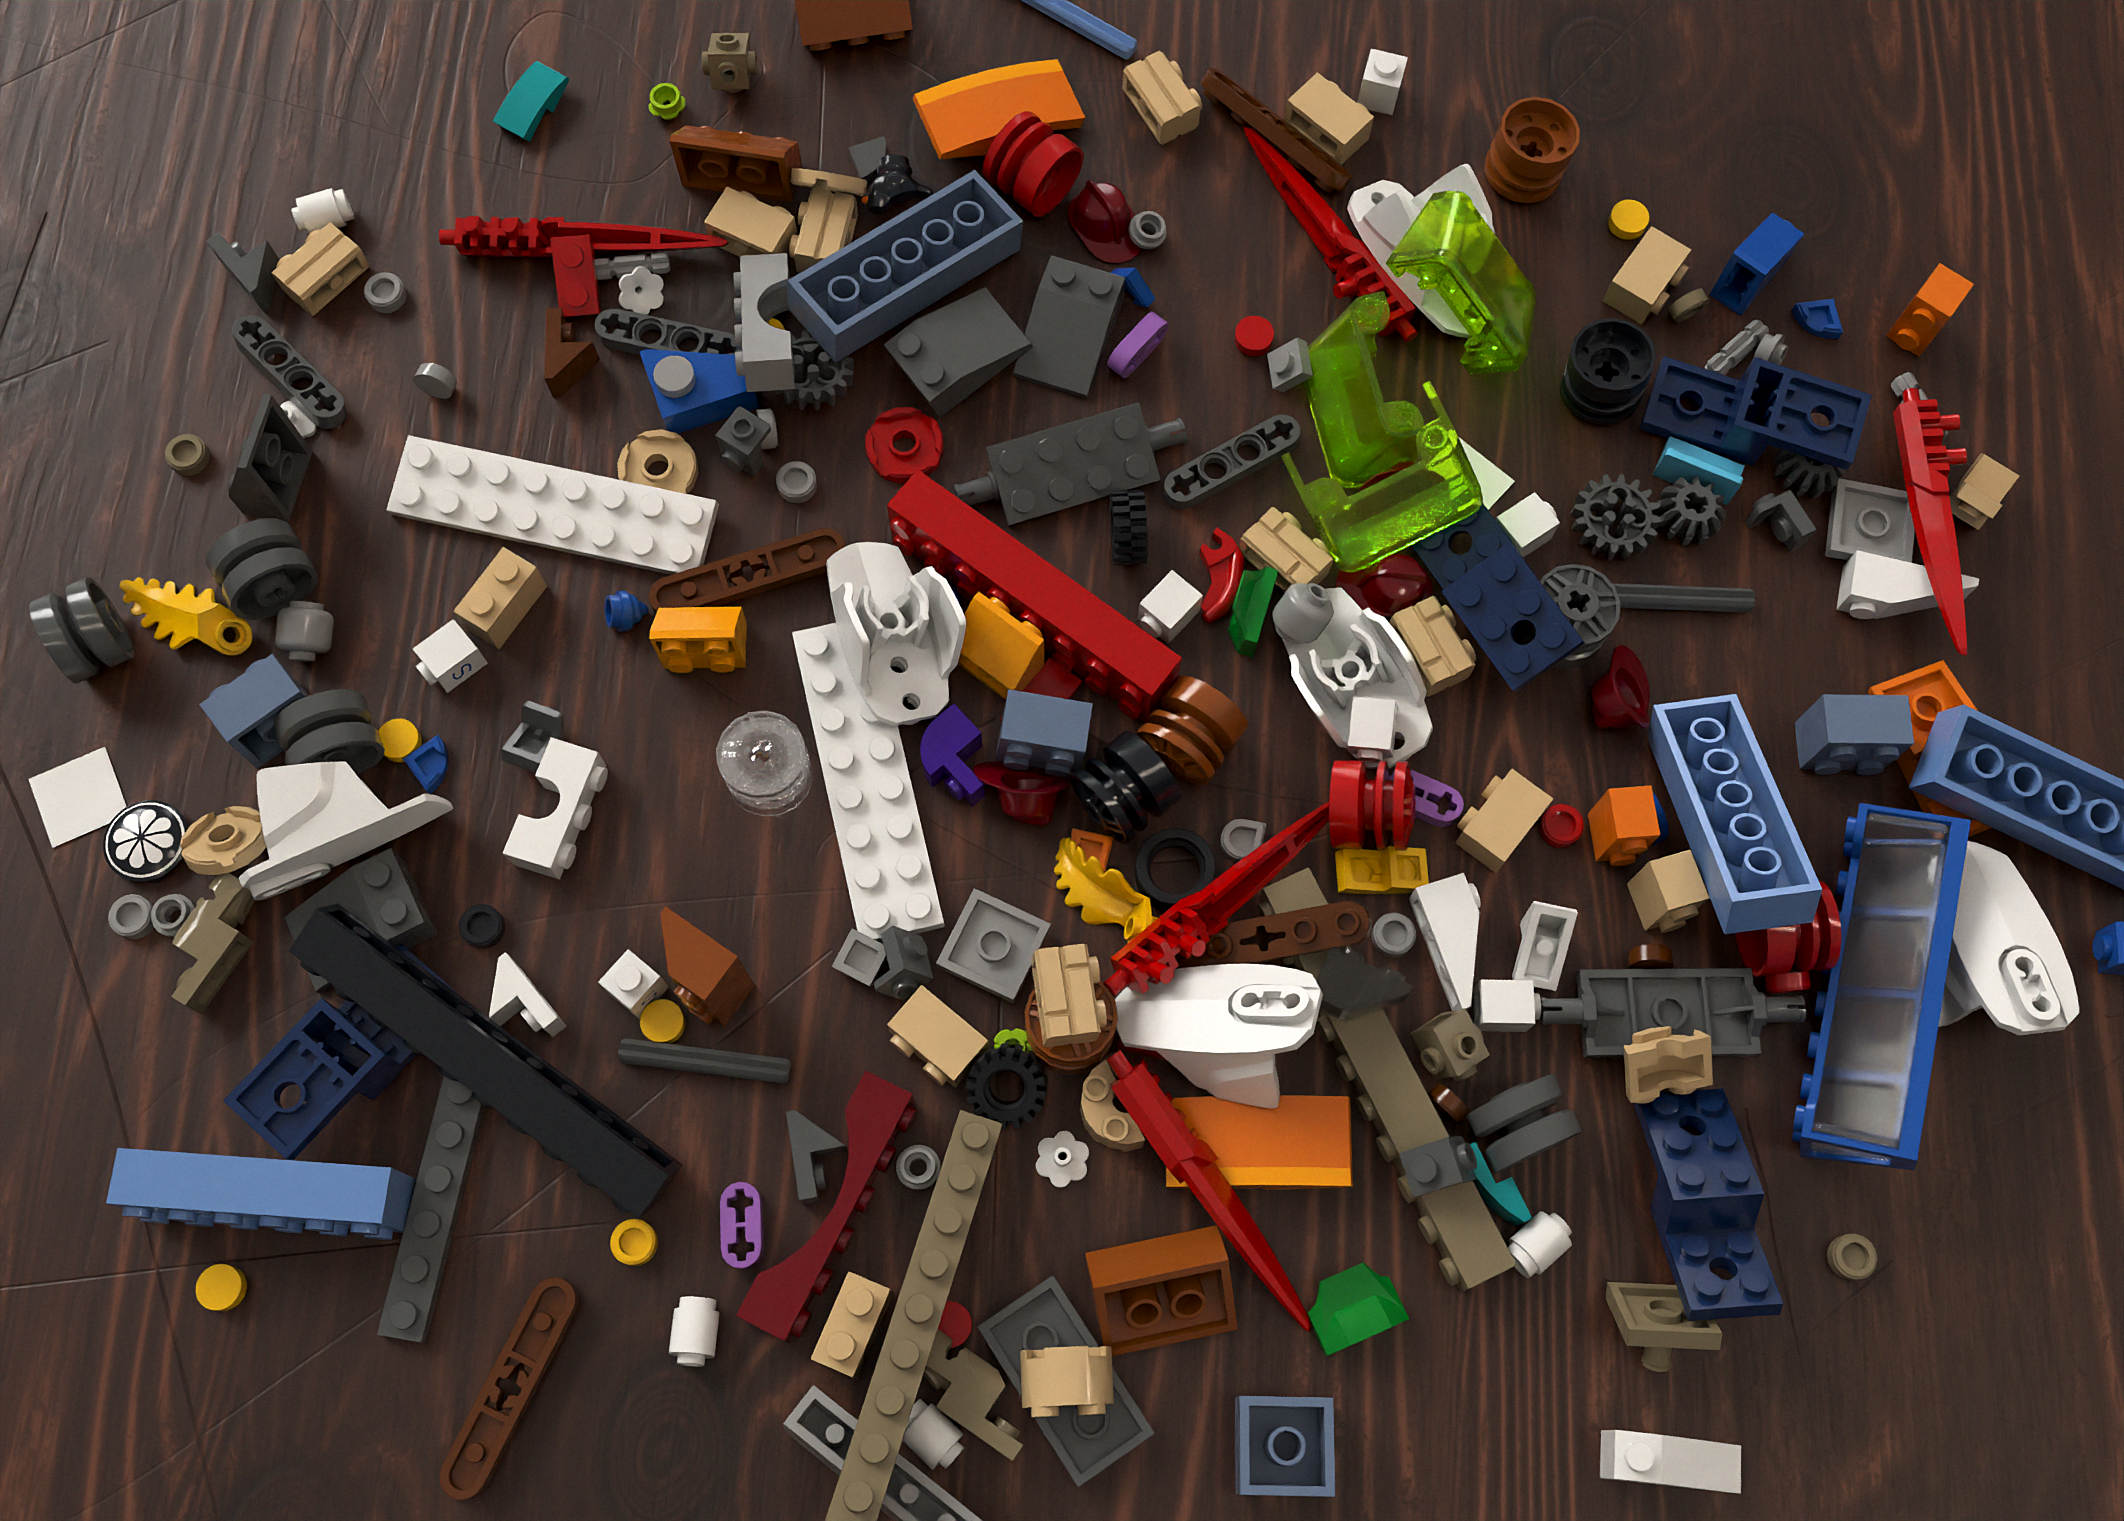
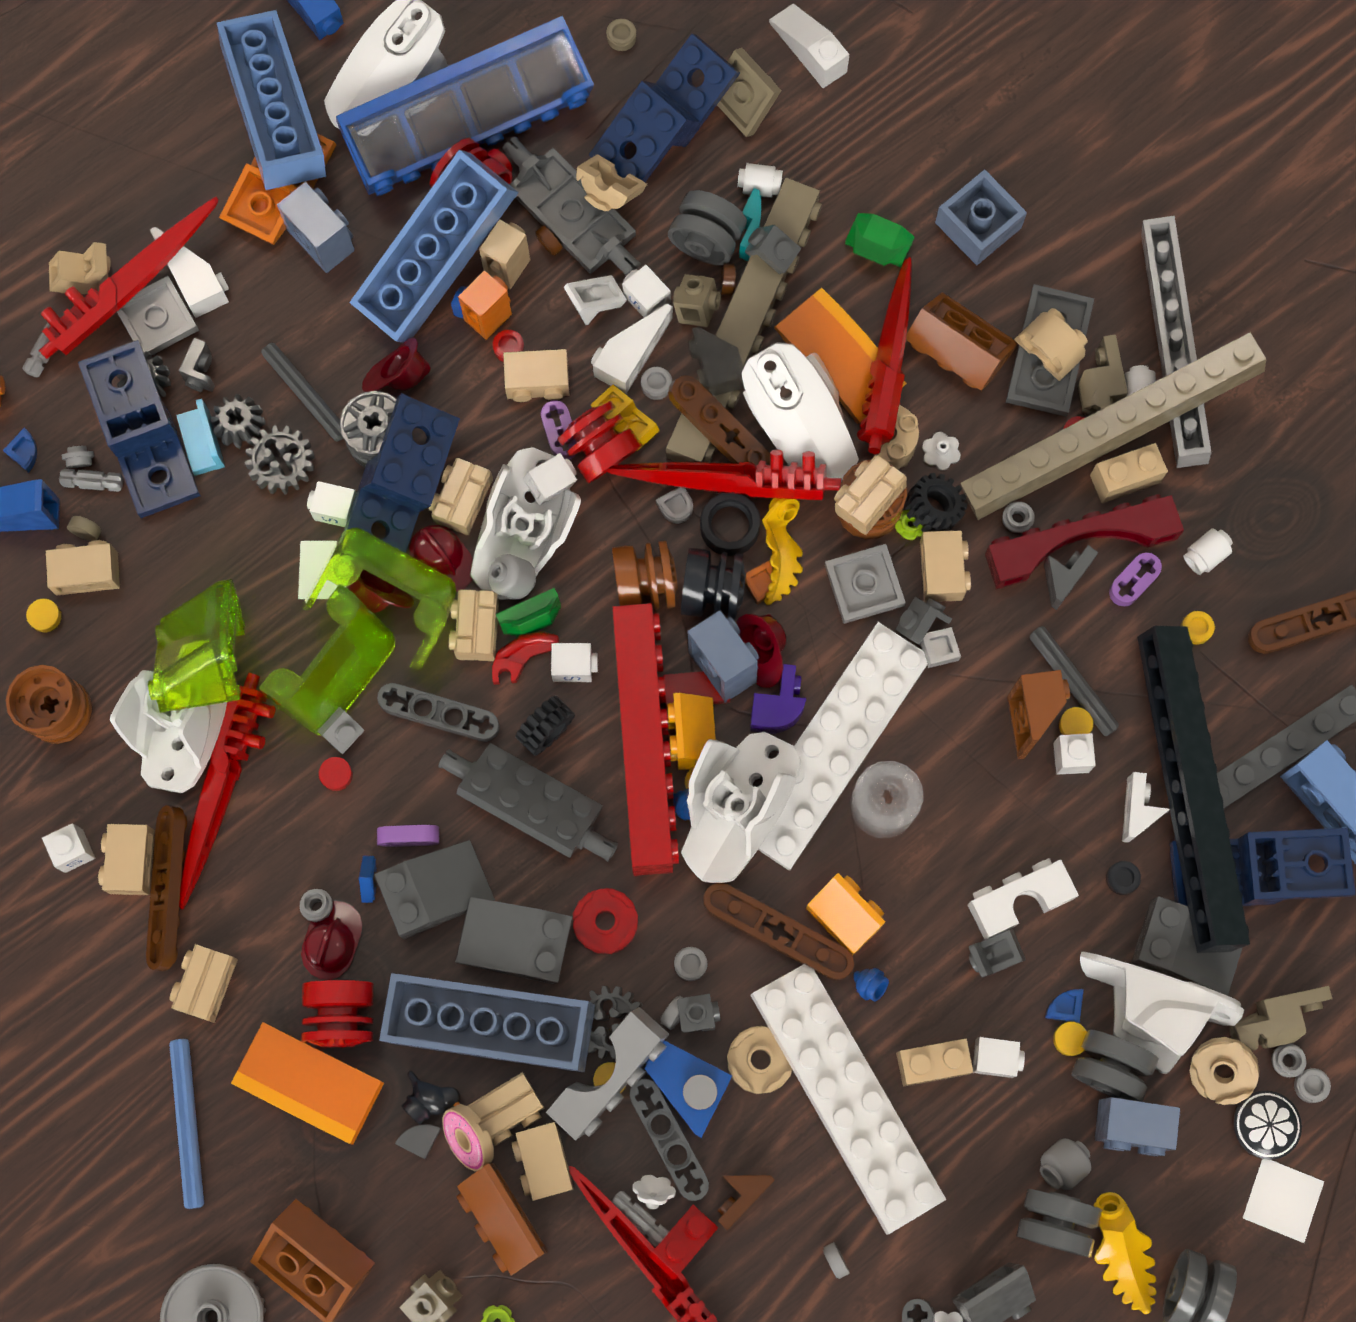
camera: 130 degrees left, 5 degrees up
(1607, 371) = (166, 531): black wheel -> none

